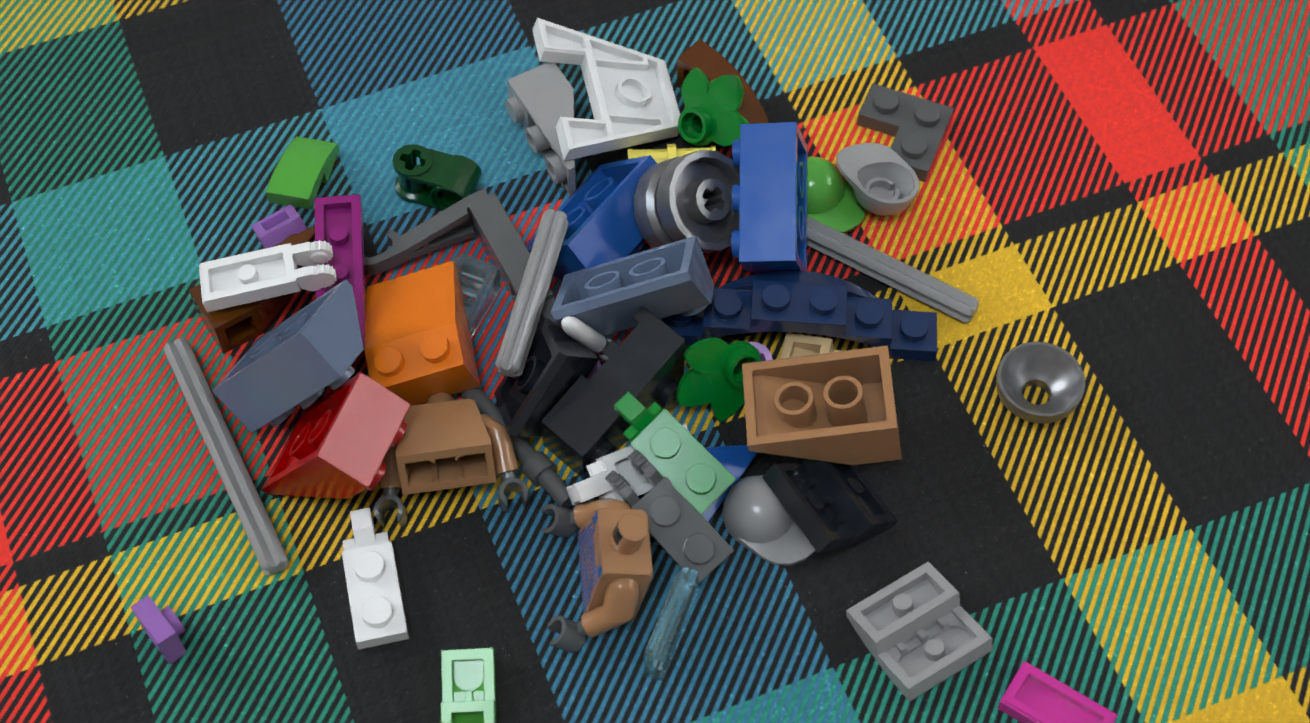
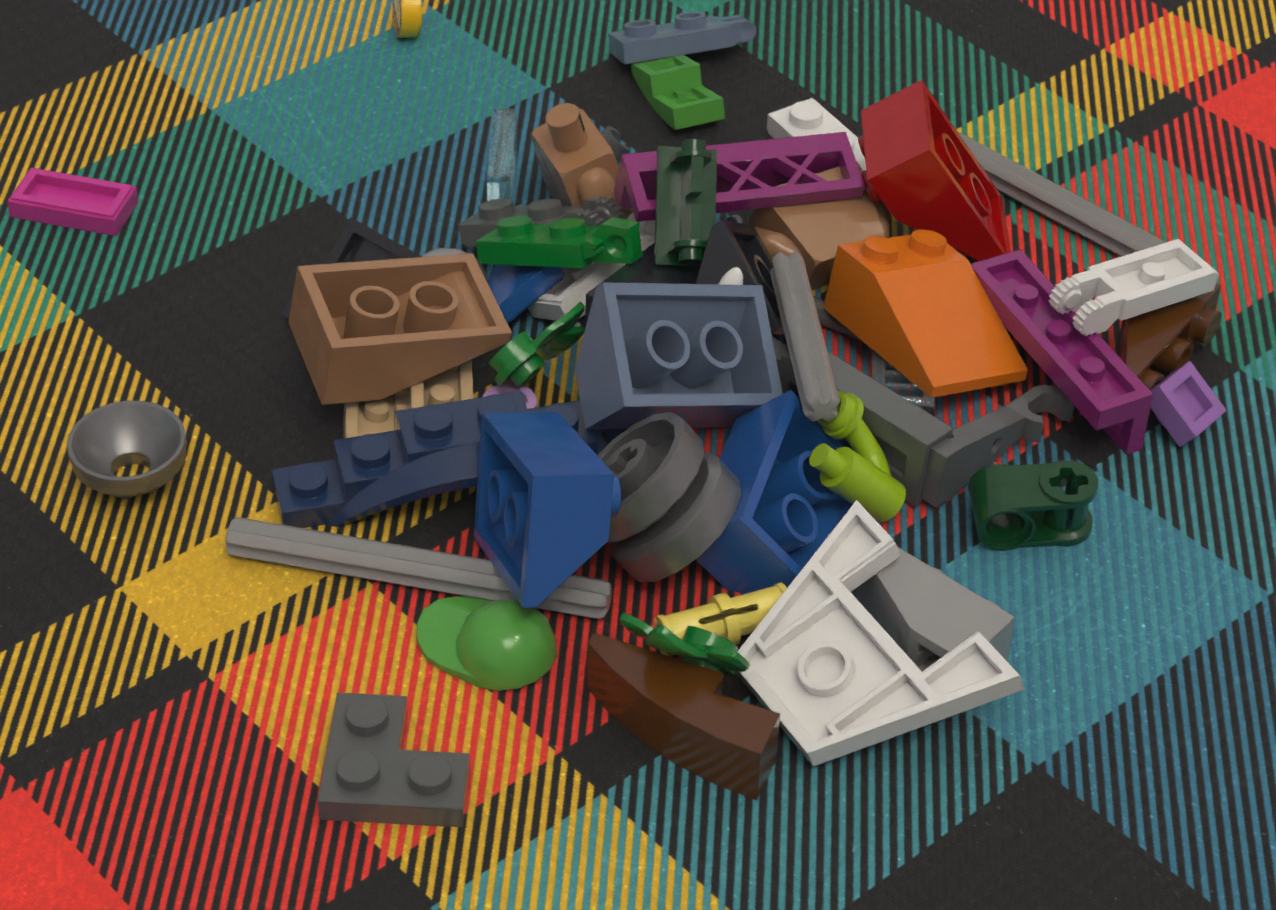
camera: 160 degrees right, 15 degrees down
(161, 627) = (1005, 63): medium lavender plate -> none
(295, 361) = (1031, 202): sand blue slope -> none
(301, 172) = (1218, 483): bright green slope -> none
(502, 468) = (751, 171): none -> magenta fence
(528, 215) = (857, 473): none -> lime plant
(571, 401) = (684, 203): none -> dark green hinge
(878, 178) = (412, 646): light grey cap -> none
(919, 631) = (232, 226): light grey slope -> none

